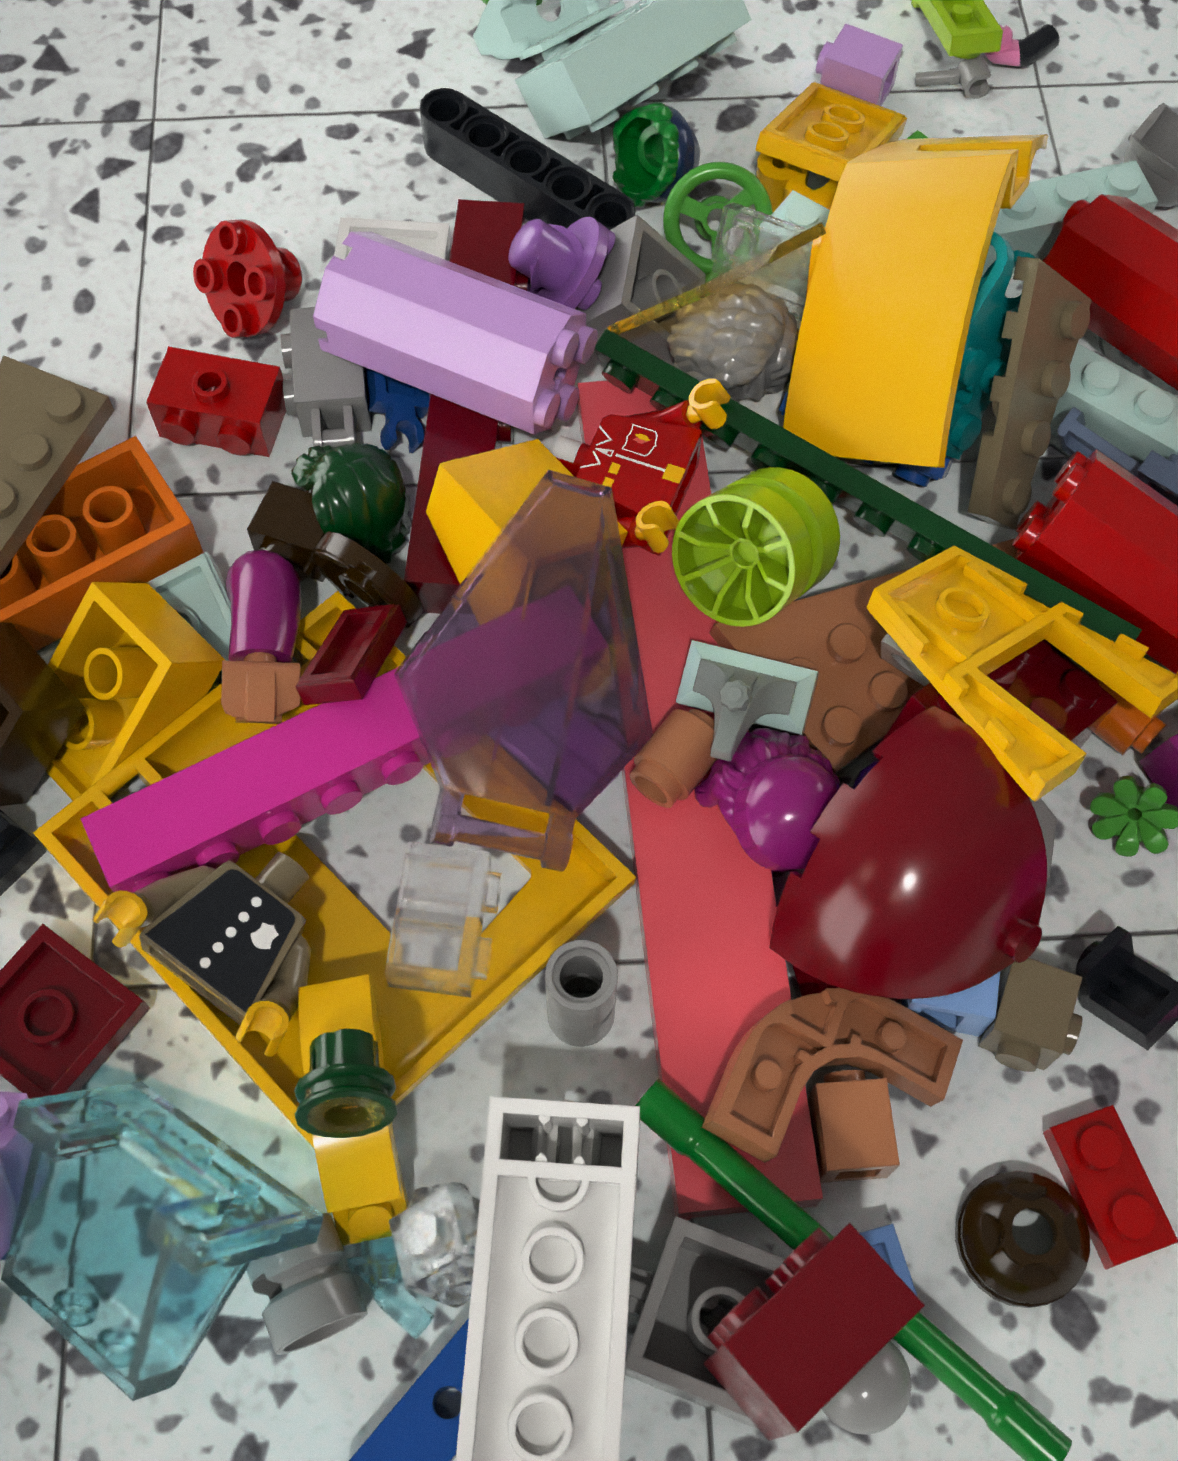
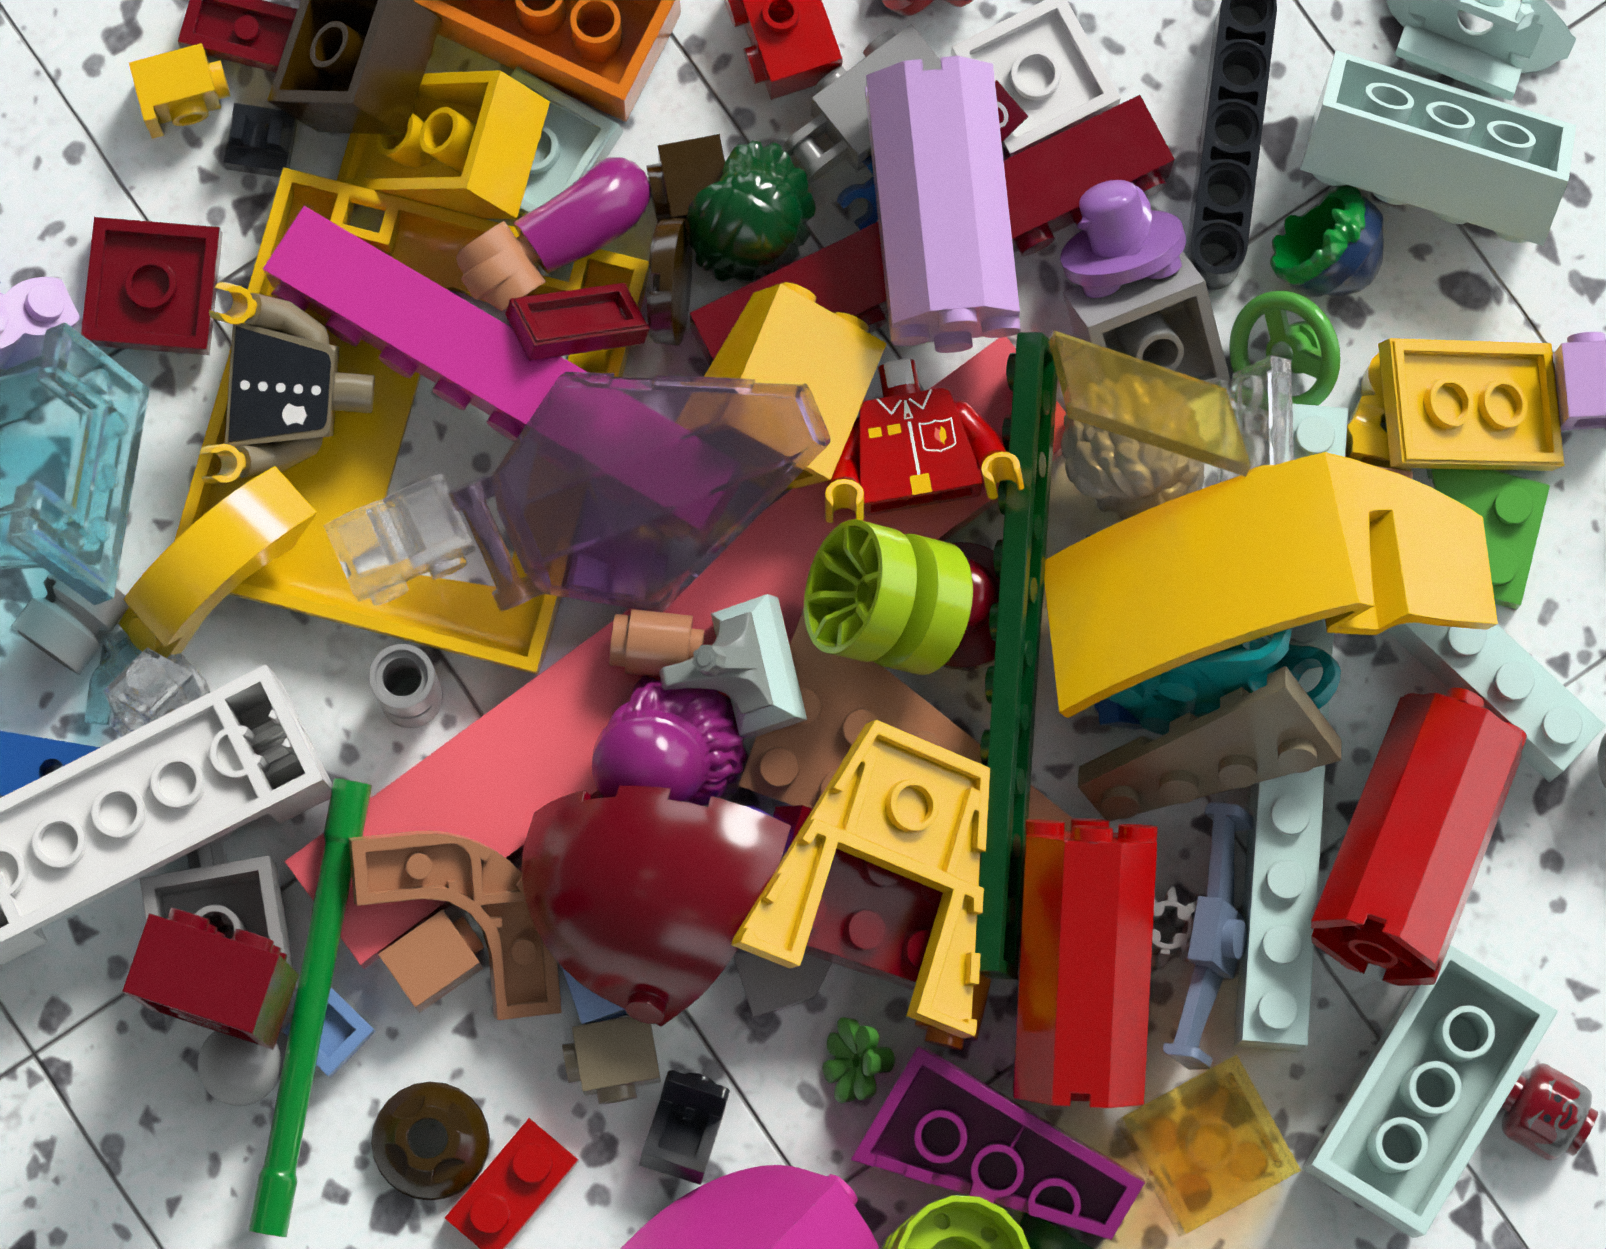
camera: 55 degrees right, 15 degrees up
(345, 1087) = (202, 554): dark green piece -> none

